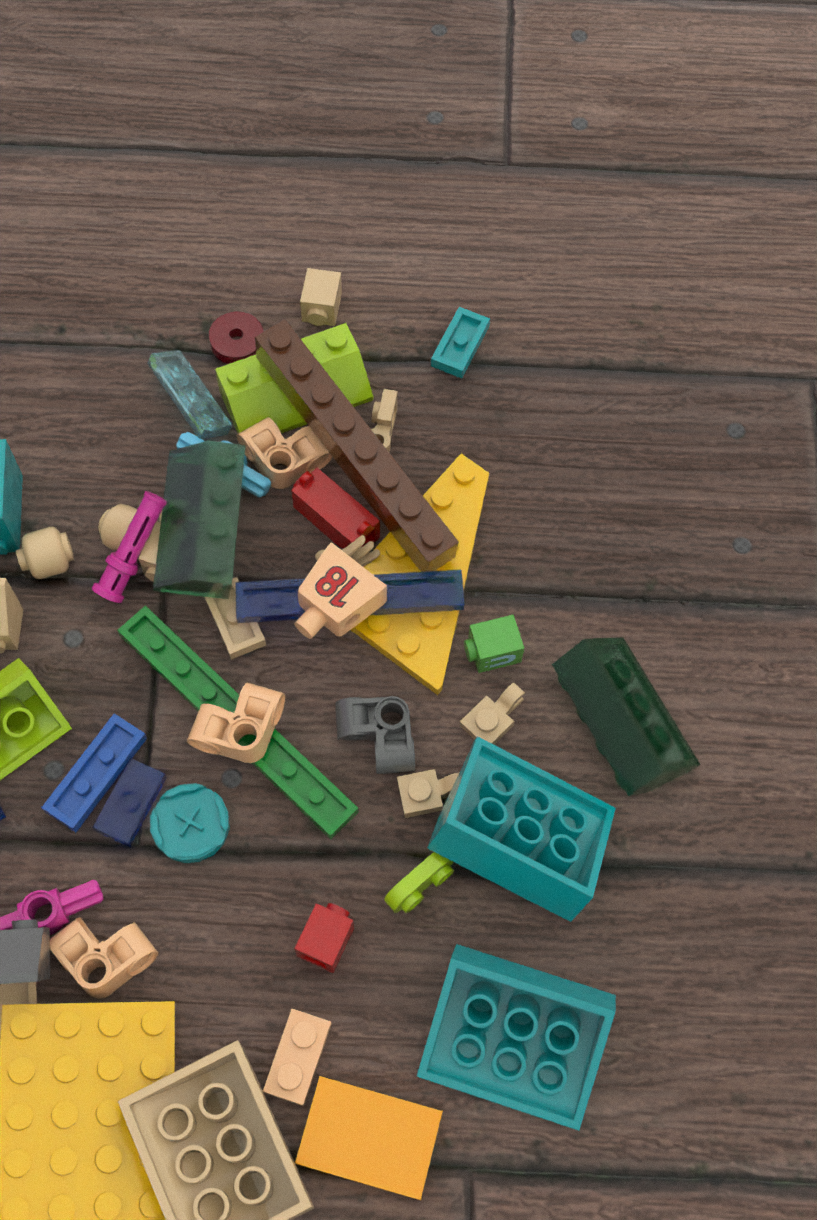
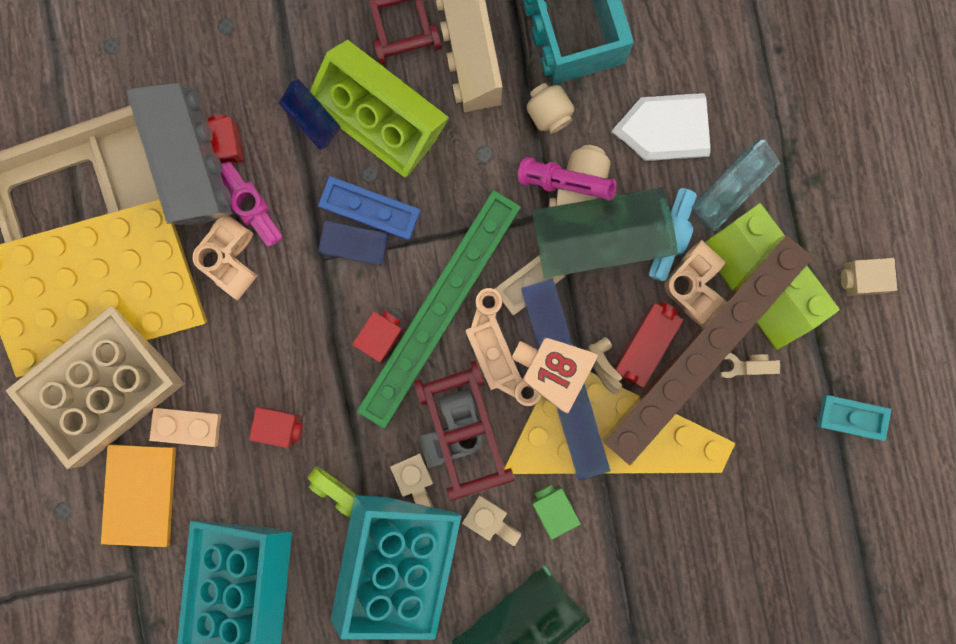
camera: 80 degrees right, 20 degrees up
(106, 447) = (667, 127): none -> white tile
(189, 823) = (347, 295): teal tile -> none
(230, 326) = (819, 200): dark red piece -> none
(248, 792) = (379, 336): none -> brick
(255, 714) = (441, 326): light nougat piece -> none
(301, 671) = (493, 351): none -> light nougat plate
(325, 688) = (425, 394): none -> dark red piece

